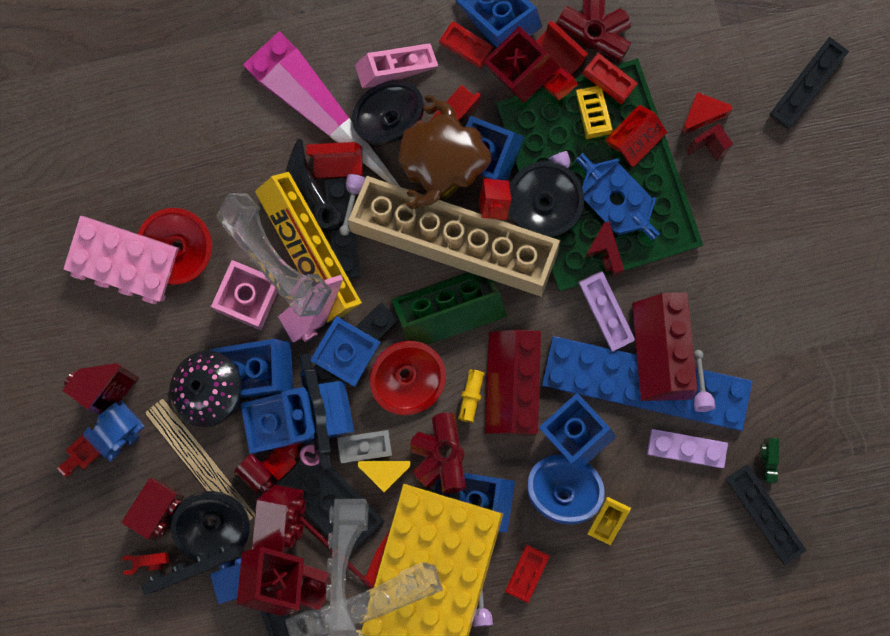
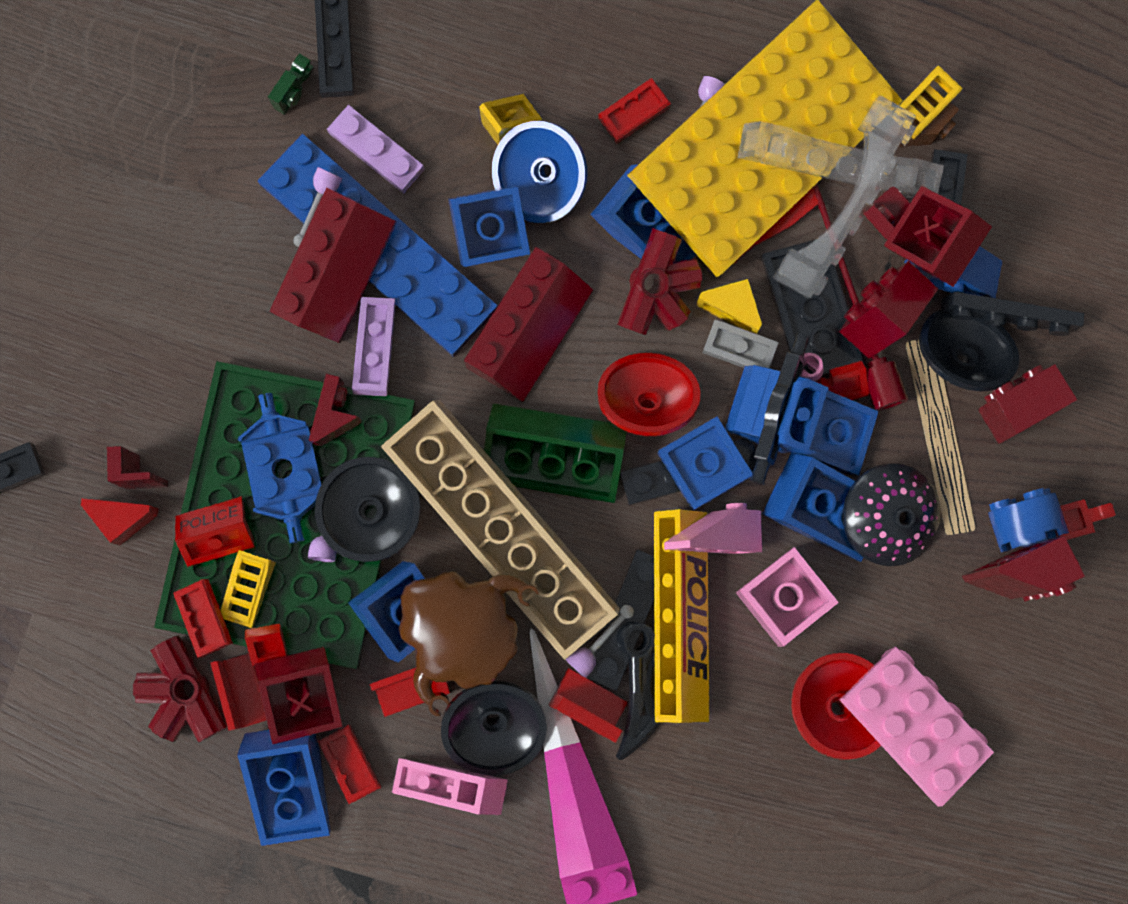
camera: 145 degrees left, 0 degrees up
(152, 561) = (1053, 351): red plate -> none
(241, 219) = (745, 689): clear arch -> none
(471, 396) = (585, 337): yellow pin -> none
(495, 199) = (428, 540): red brick -> none

